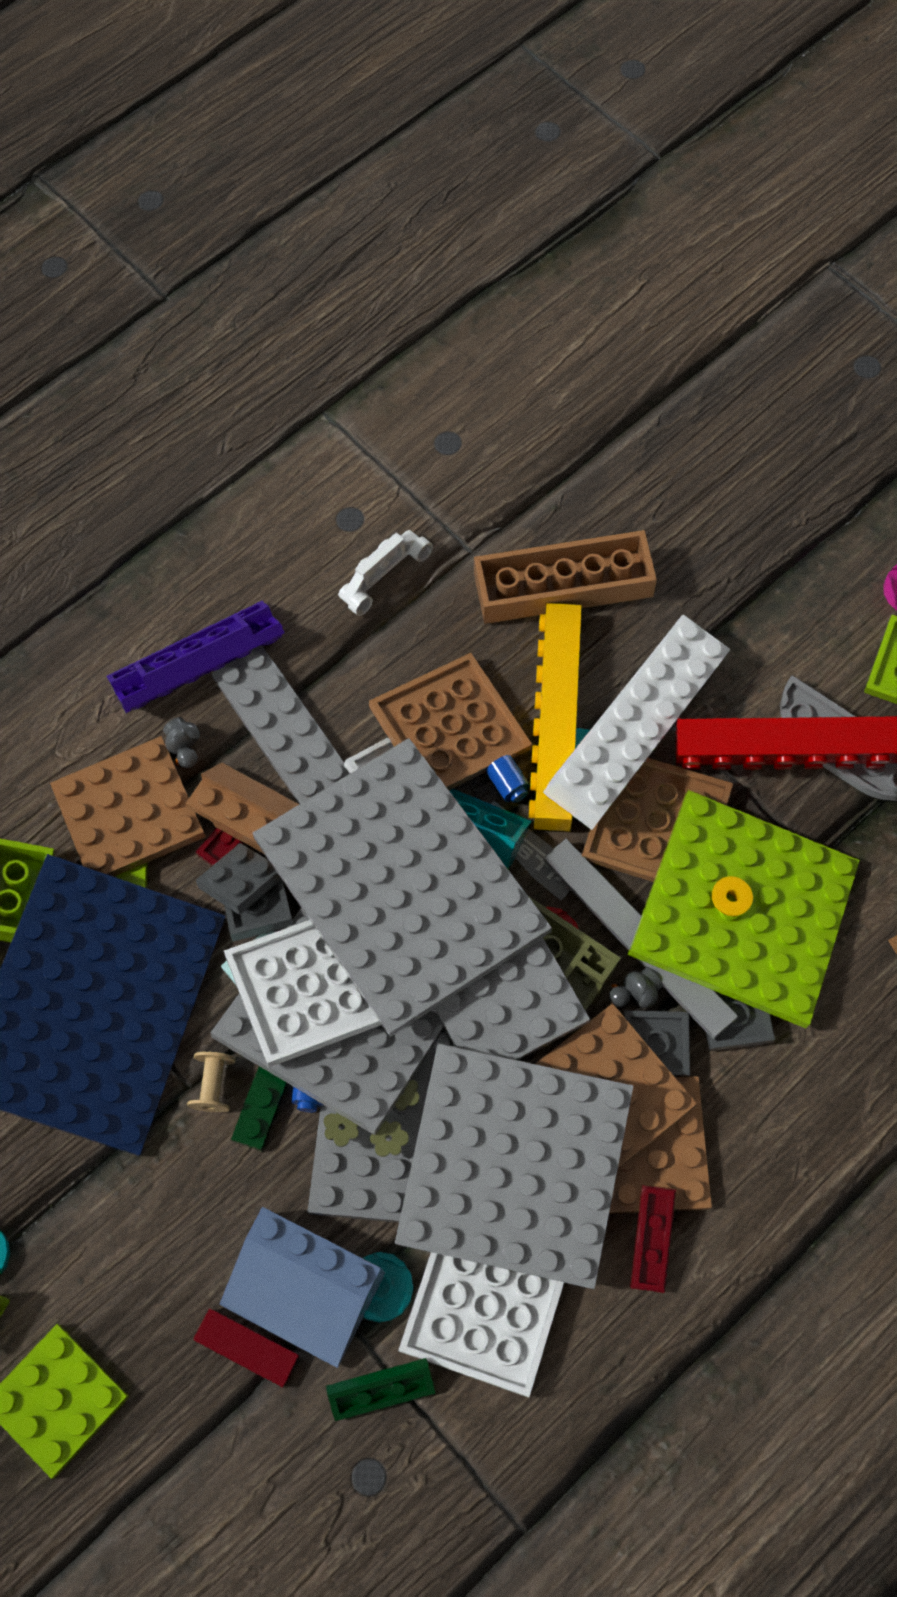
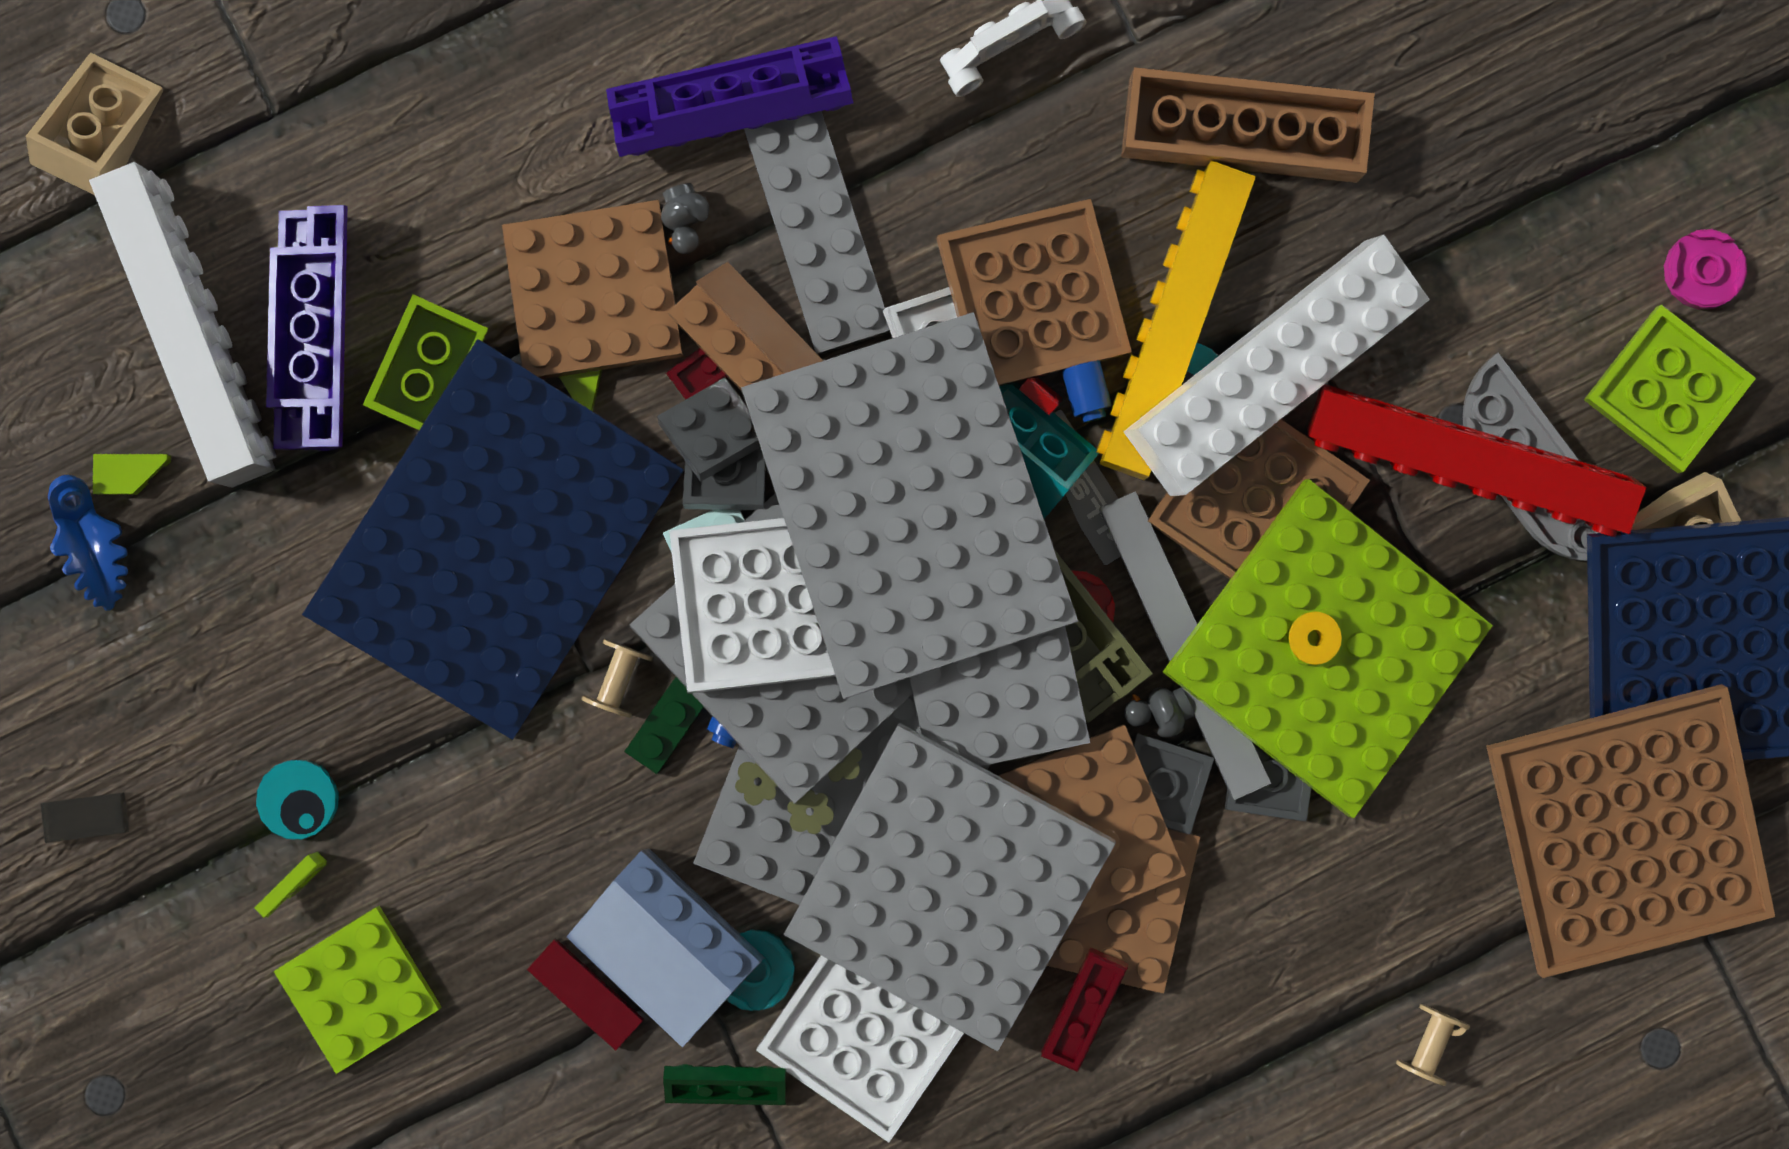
camera: 15 degrees right, 20 degrees up
(476, 790) = (1041, 394): none -> red tile

